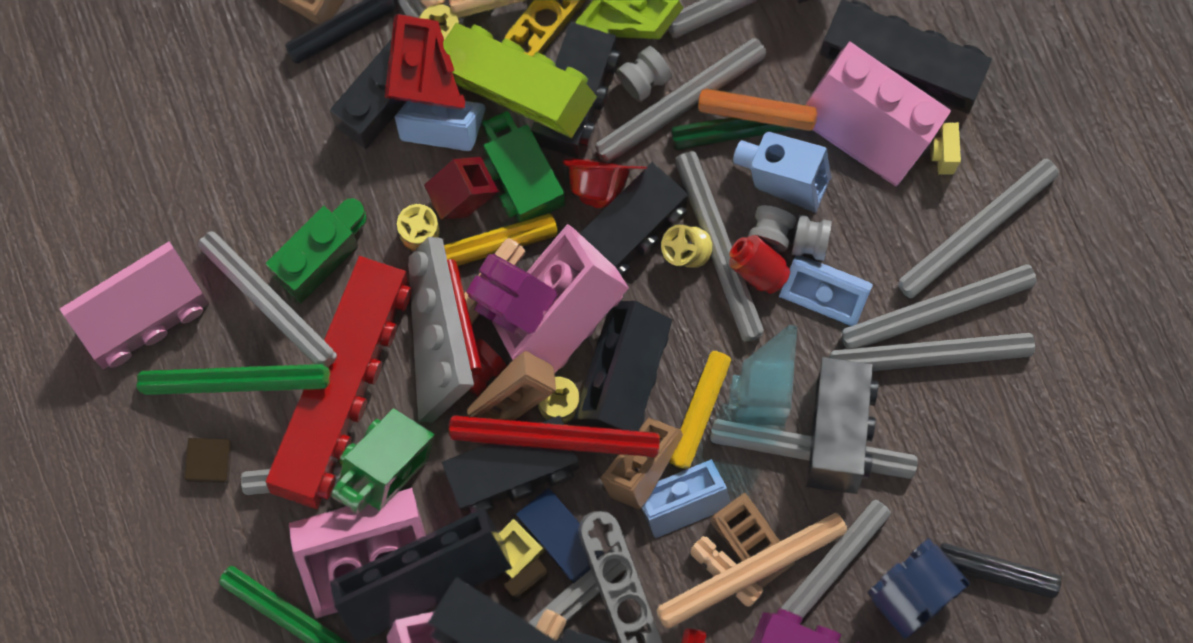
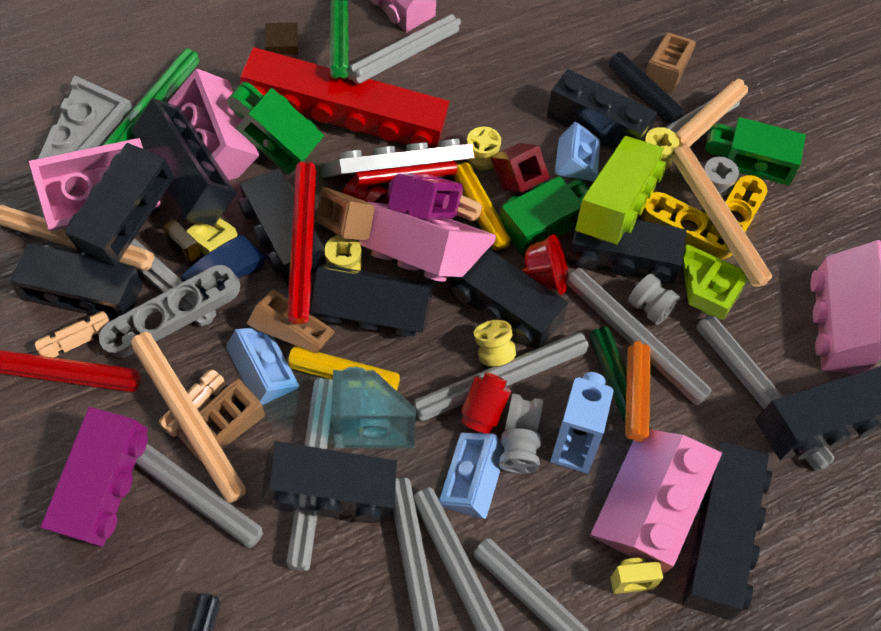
camera: 80 degrees right, 15 degrees down
(317, 248) = (454, 78): green brick -> none
(420, 66) = (617, 116): red wing -> none
(917, 588) = (163, 566): dark blue brick -> none

